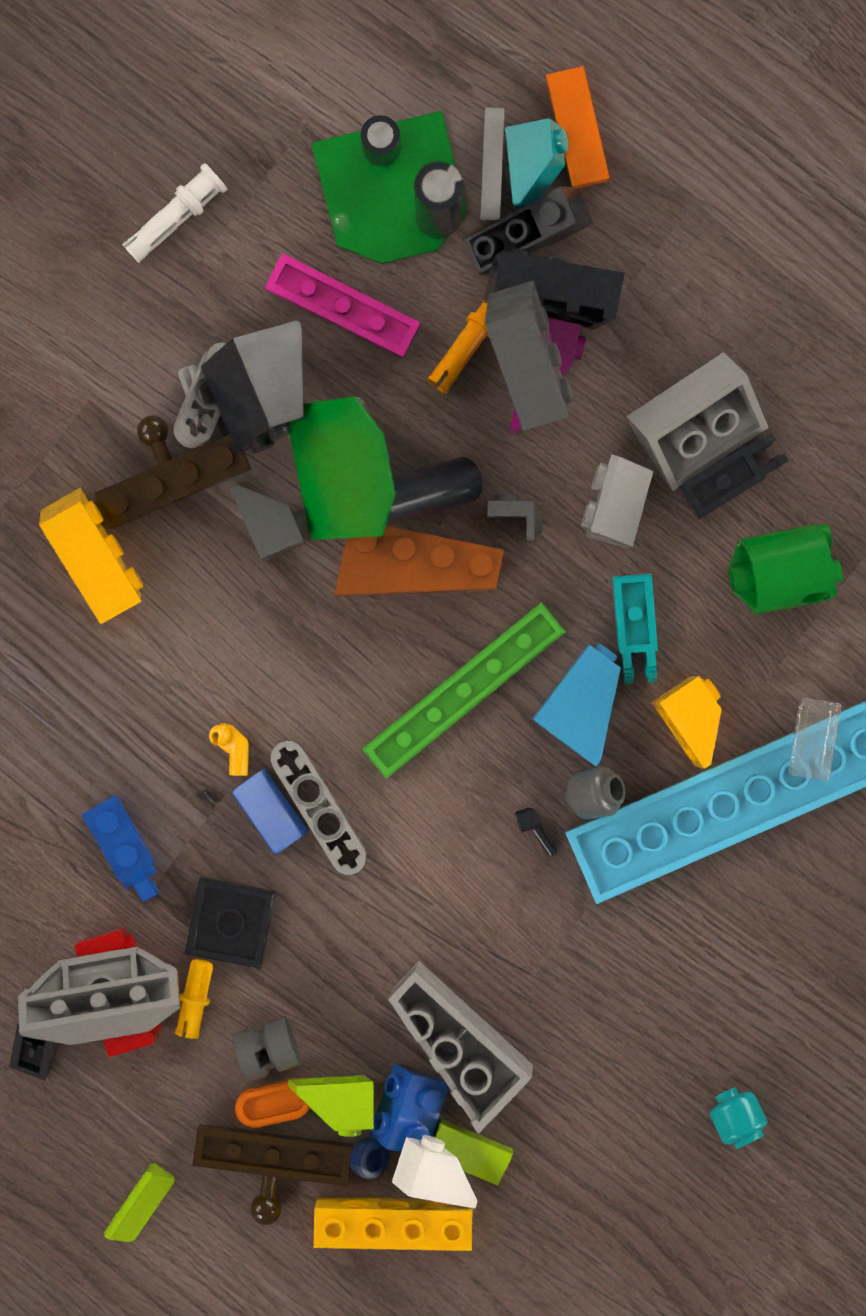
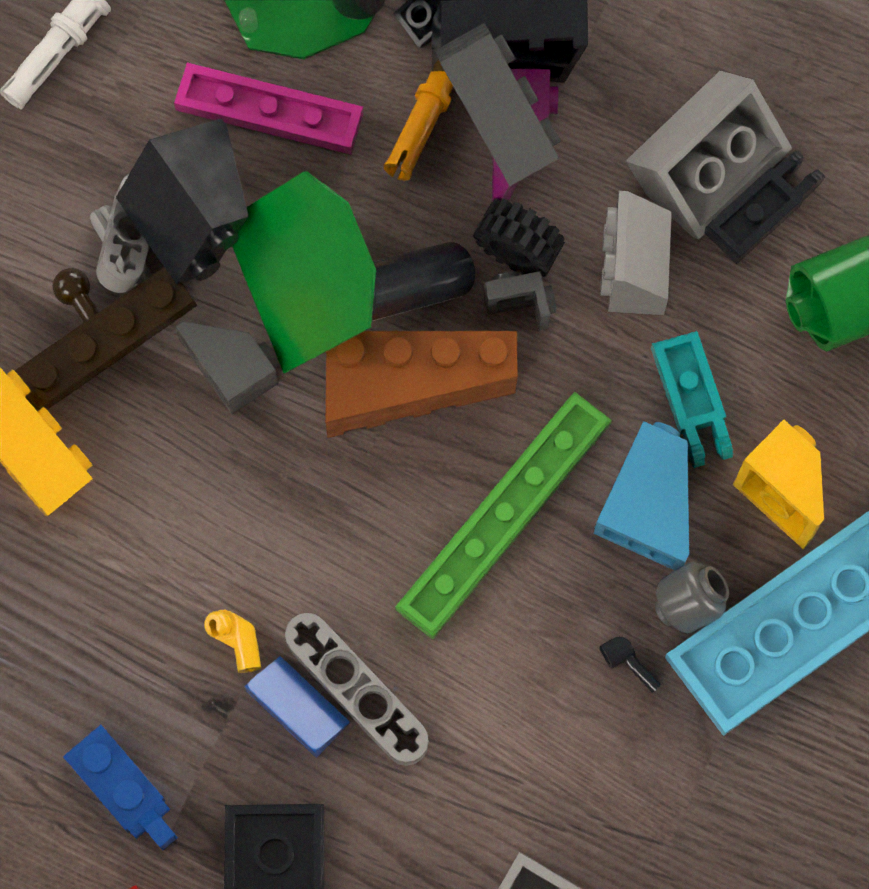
camera: 15 degrees left, 15 degrees down
(523, 467) = (518, 237): none -> black tyre

